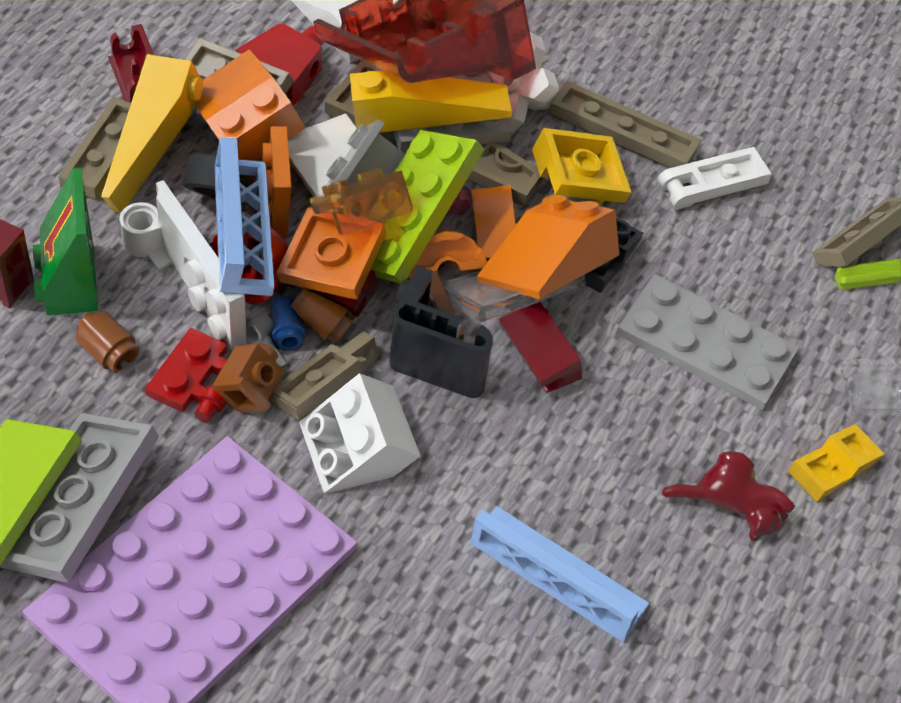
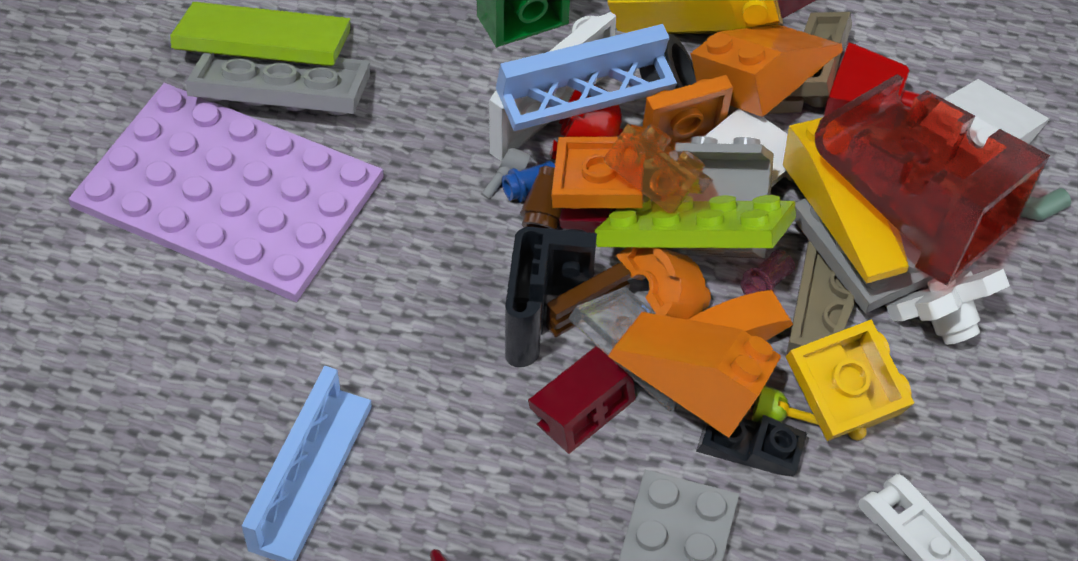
camera: 80 degrees right, 0 degrees up
(106, 340) = (455, 56): dark orange brick -> none
(186, 371) = (448, 124): red plate -> none
(249, 378) = (459, 152): dark orange brick -> none
(324, 375) = (470, 220): dark tan hinge -> none
(359, 435) = (414, 266): white slope -> none
(625, 125) = (956, 427): dark tan plate -> none

